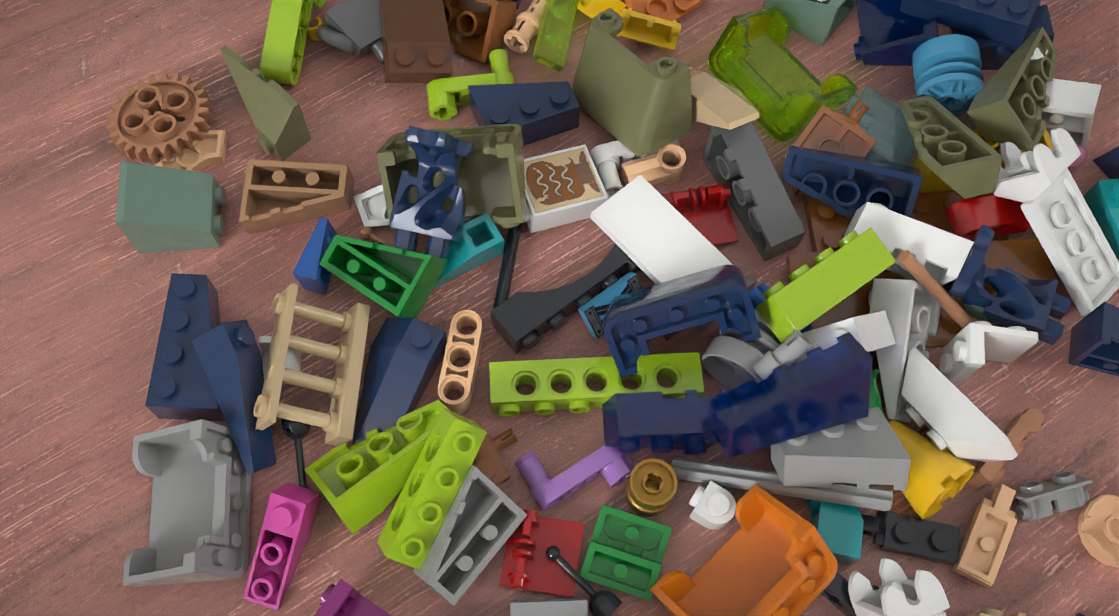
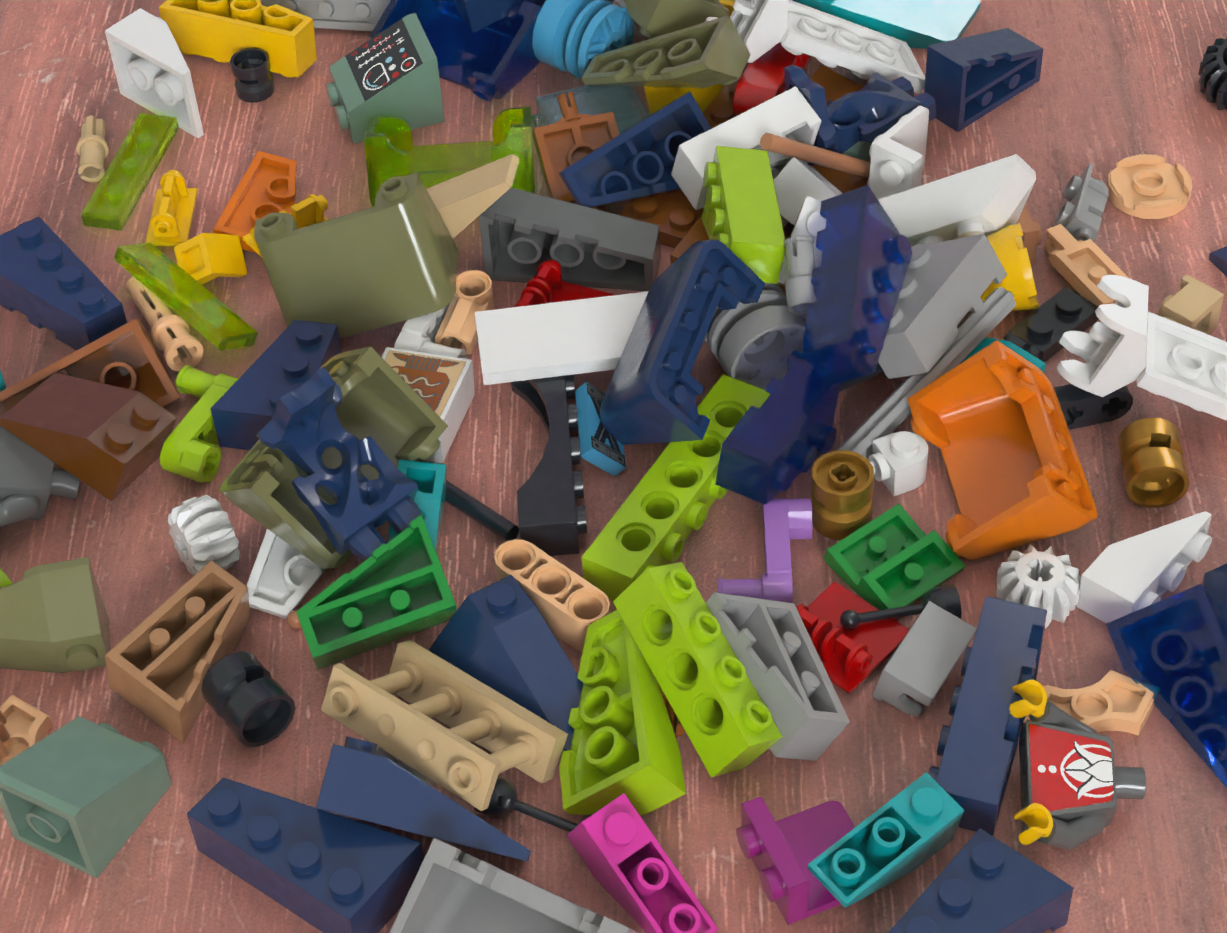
camera: 50 degrees left, 20 degrees down
(283, 247) = (248, 699): none -> black wheel
(308, 270) = (297, 672): blue slope -> none
(371, 141) = (203, 534): none -> white gear

